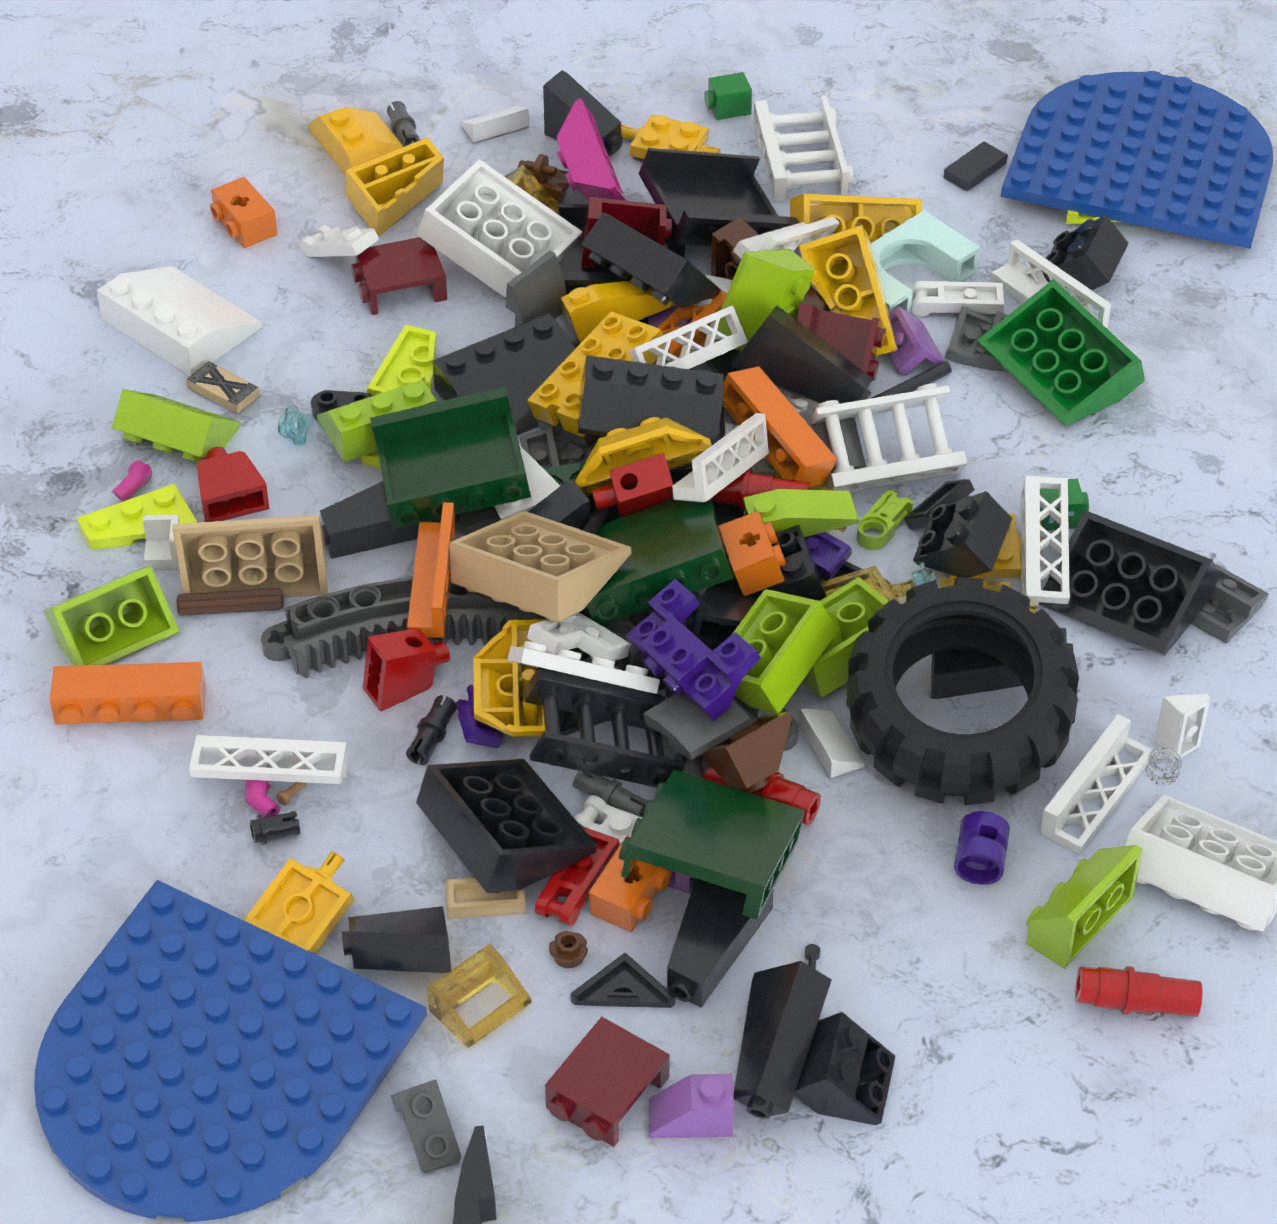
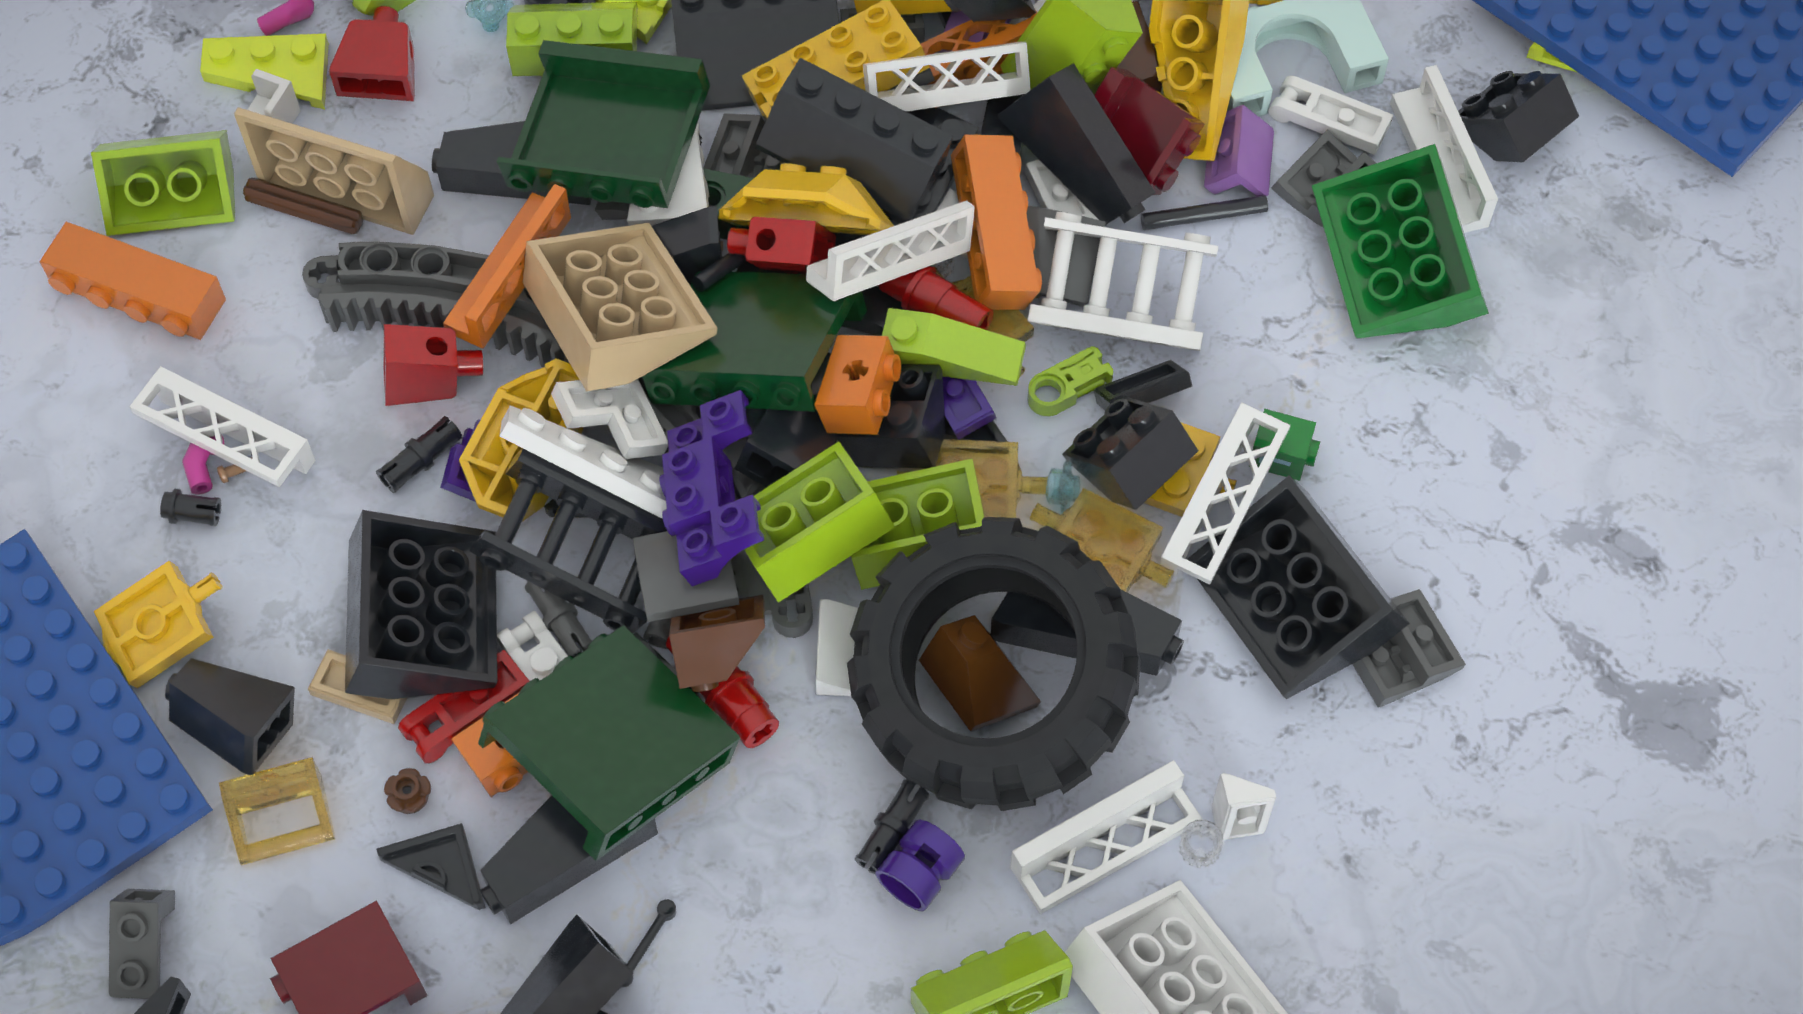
camera: 25 degrees right, 15 degrees up
(943, 835) = (892, 825): none -> black pin
(945, 705) = (976, 674): none -> reddish brown slope

